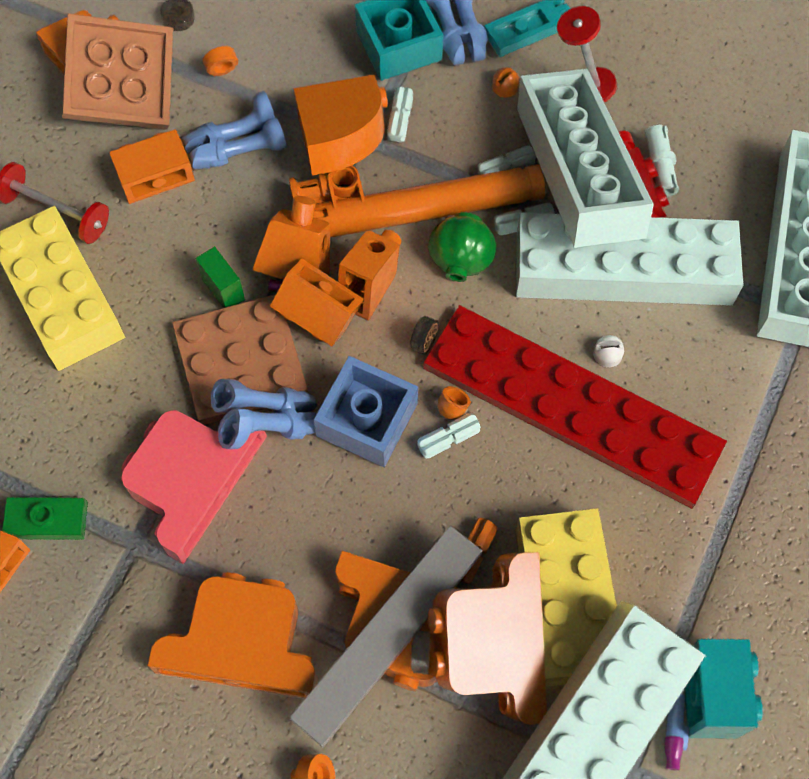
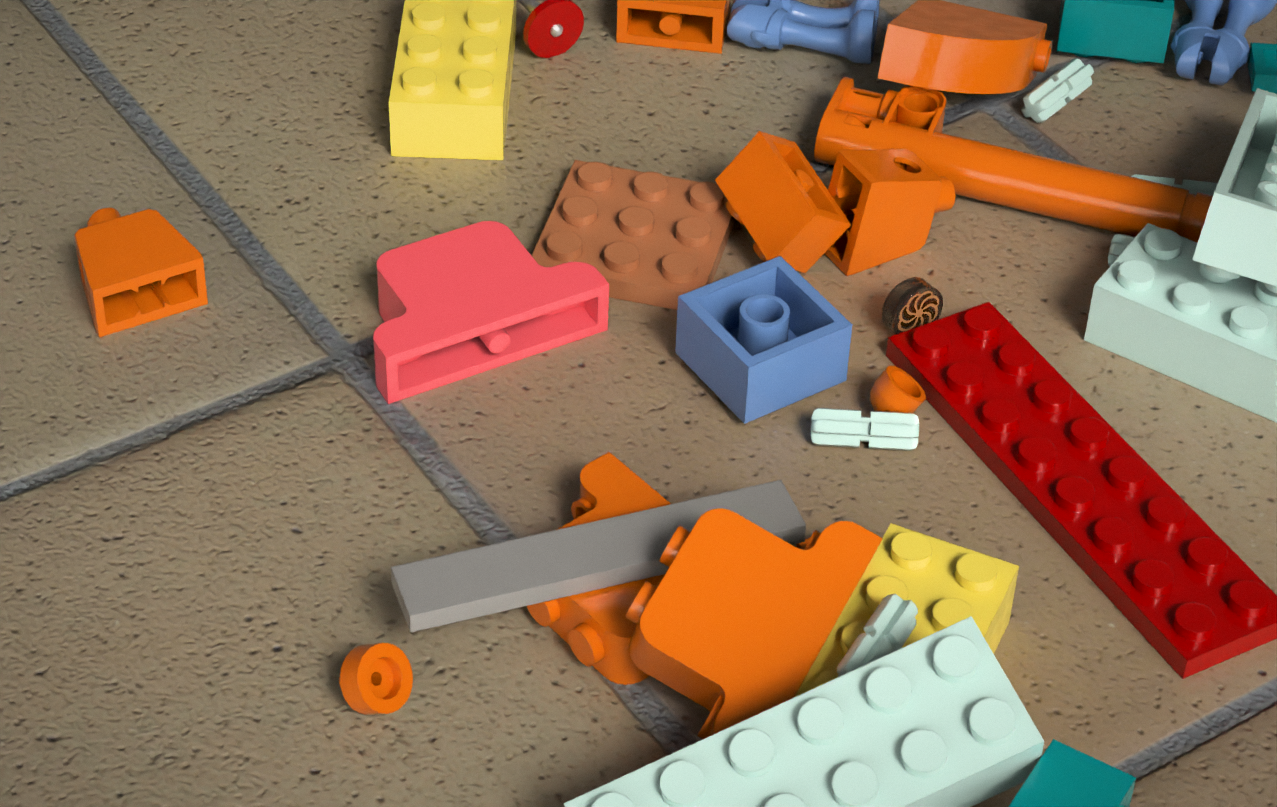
camera: 30 degrees right, 25 degrees down
(45, 518) = (257, 278): green plate -> none
(220, 278) = (673, 134): green piece -> none
(239, 639) = (388, 486): orange brick -> none
(290, 414) = (598, 246): medium blue piece -> none
(294, 237) = (806, 118): orange torso -> none
(421, 652) = (625, 578): clear smoke tile -> none
(462, 246) = (1041, 243): green plant -> none
(510, 84) = (1233, 113): orange hinge -> none
(573, 628) = (884, 633): none -> light aqua piece
(608, 356) = (1181, 445): white hinge -> none

